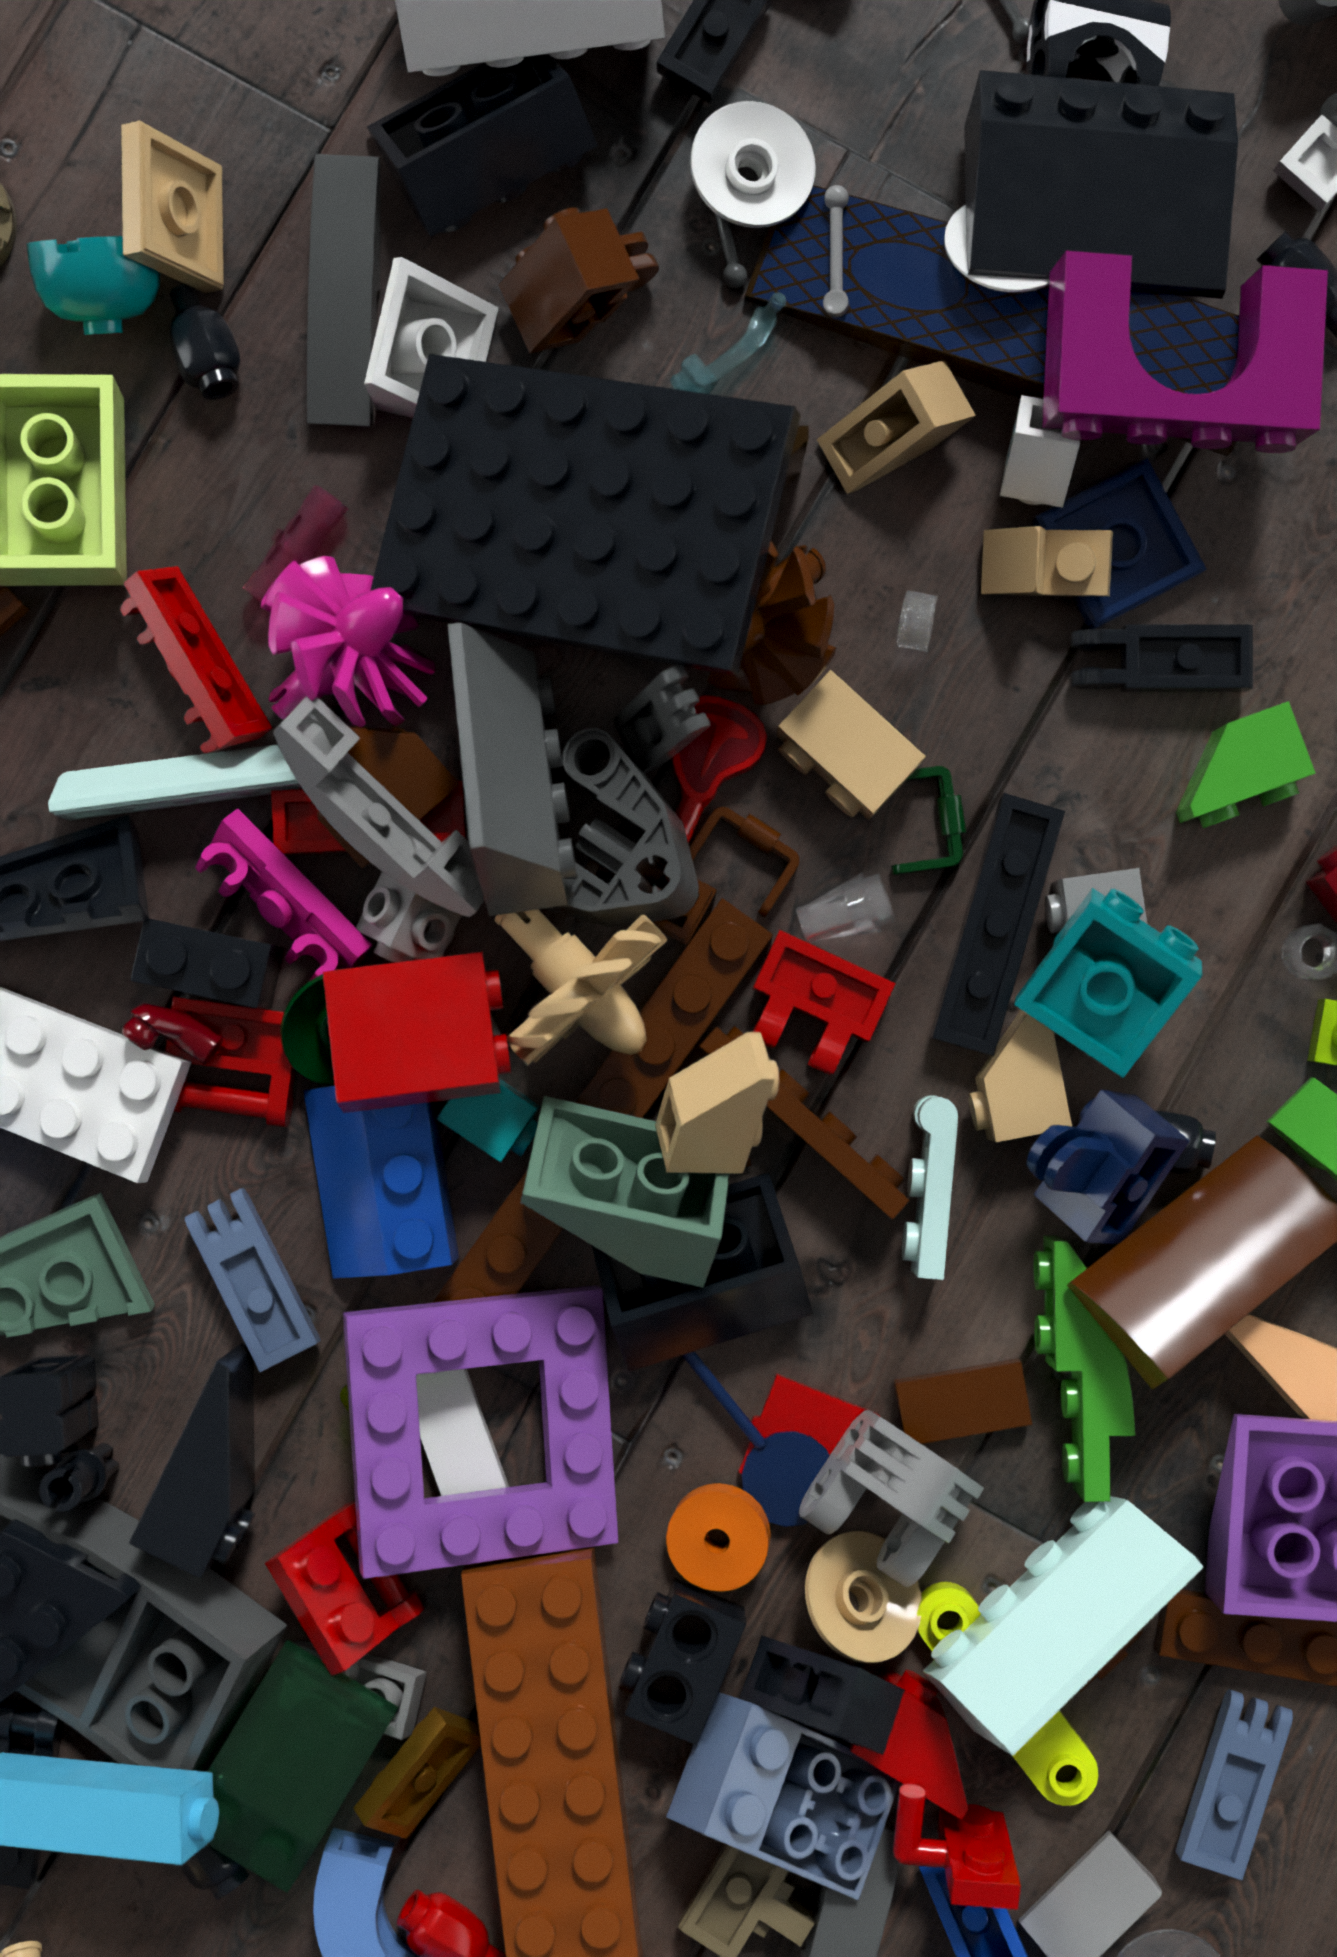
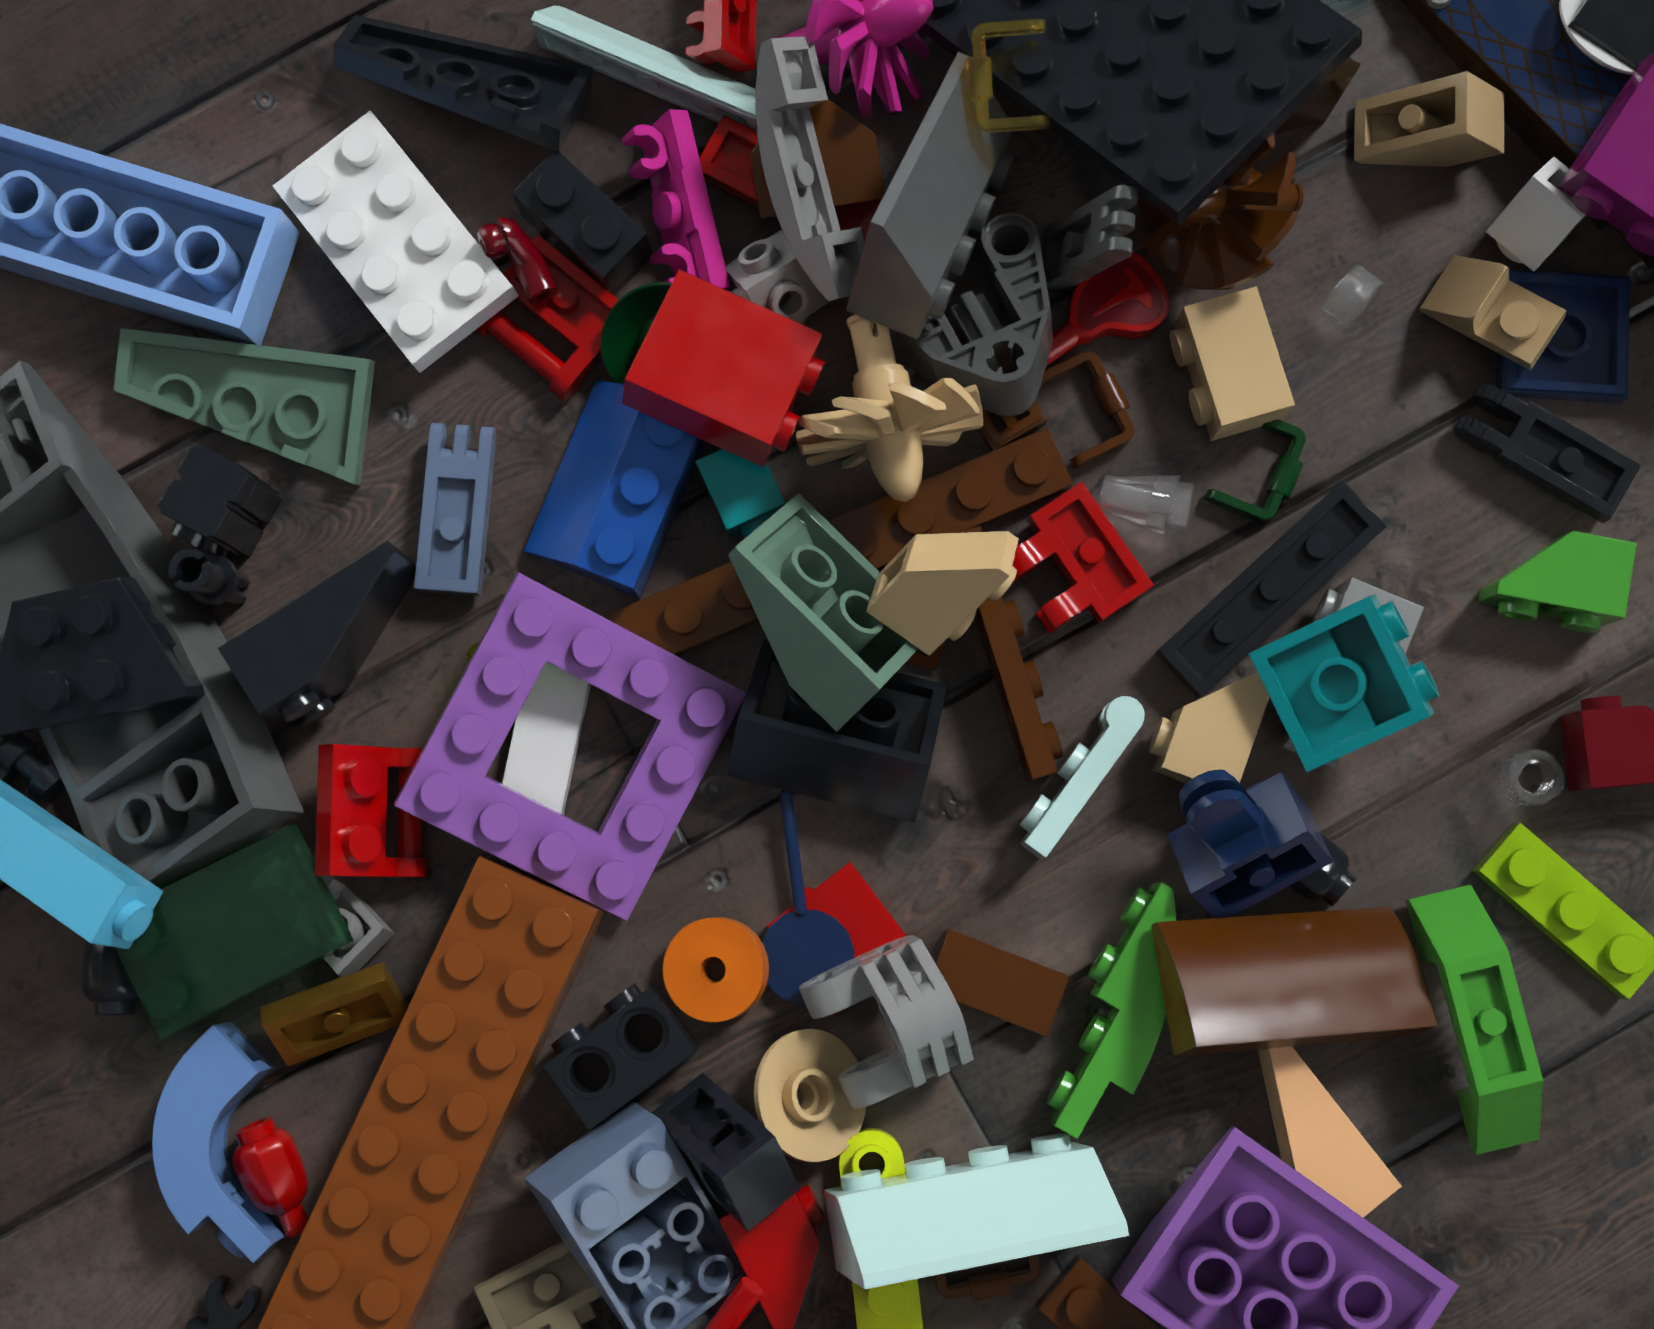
camera: 30 degrees right, 5 degrees down
(482, 639) = (980, 76): none -> clear yellow piece

